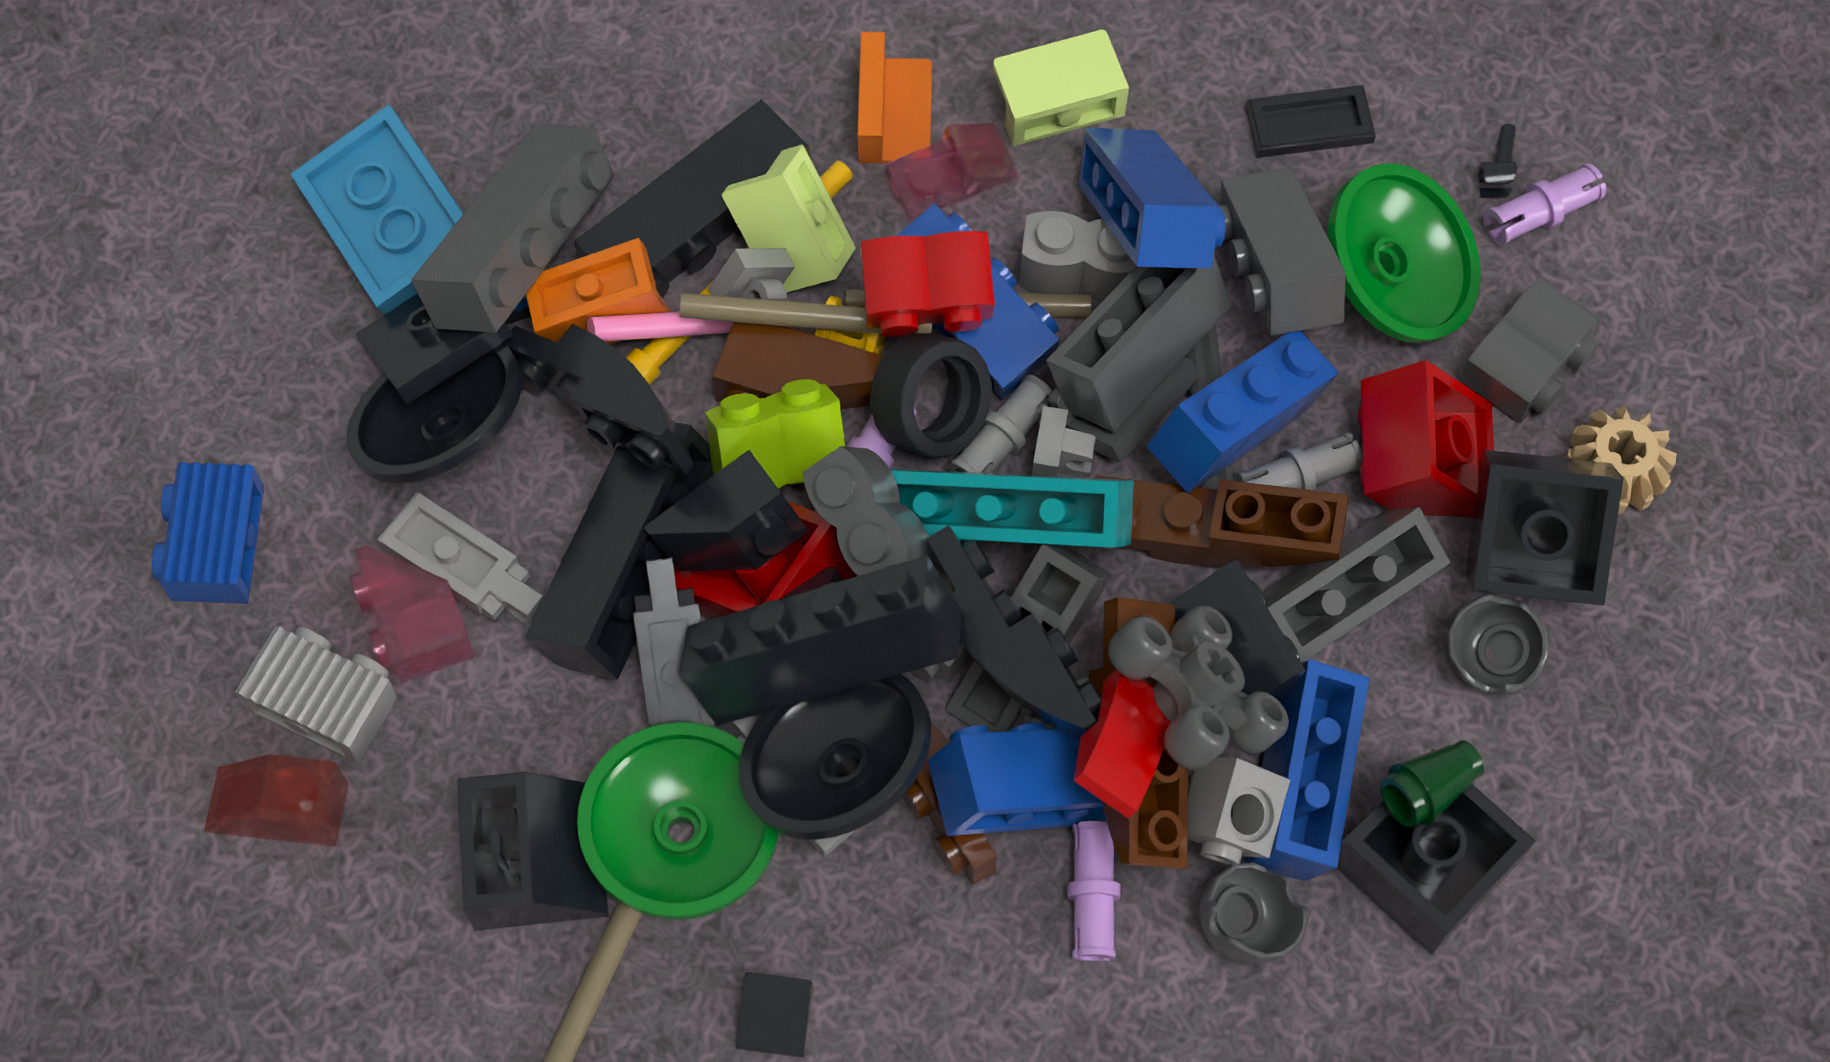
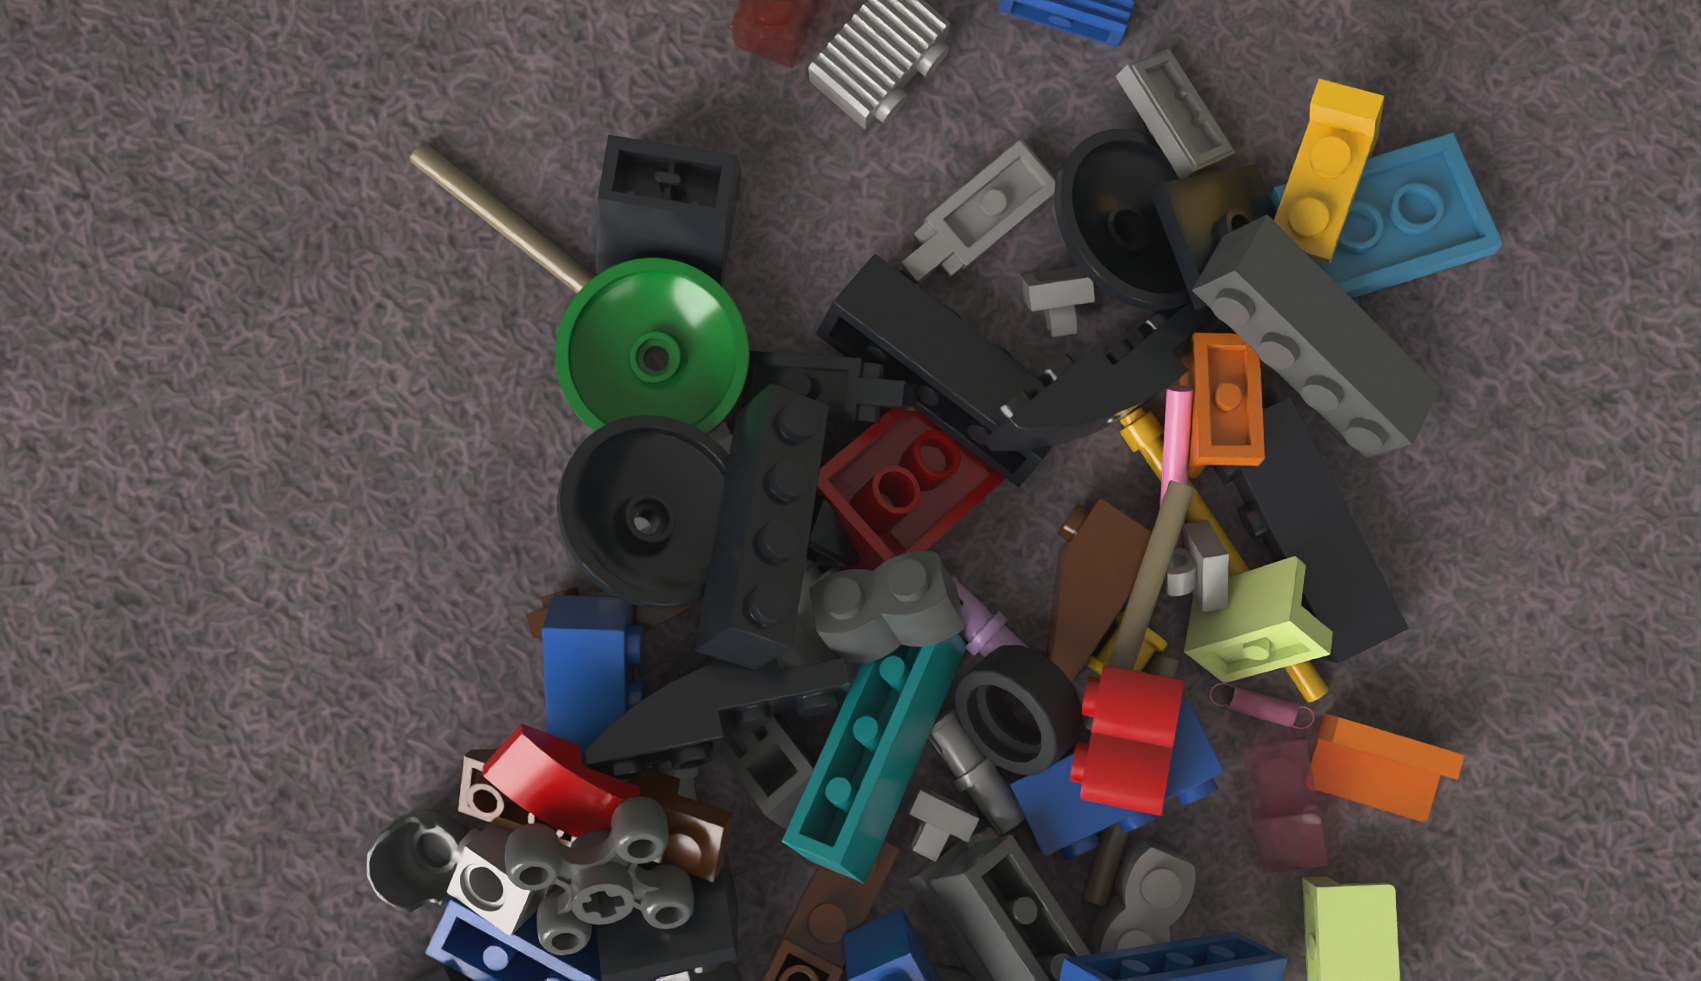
camera: 110 degrees right, 20 degrees up
(322, 411) = (1175, 114): none -> light grey plate
(348, 256) = (1329, 167): none -> yellow bracket
(415, 615) = (935, 156): clear pink slope -> none
(524, 470) = (1056, 294): none -> light grey tile
(728, 521) = (929, 477): black slope -> none
(774, 1014) = (462, 400): black slope -> none
(781, 431) = (1012, 543): lime brick -> none
(867, 207) = (1263, 706): none -> bright pink piece
(1093, 892) = (485, 719): lavender pin -> none

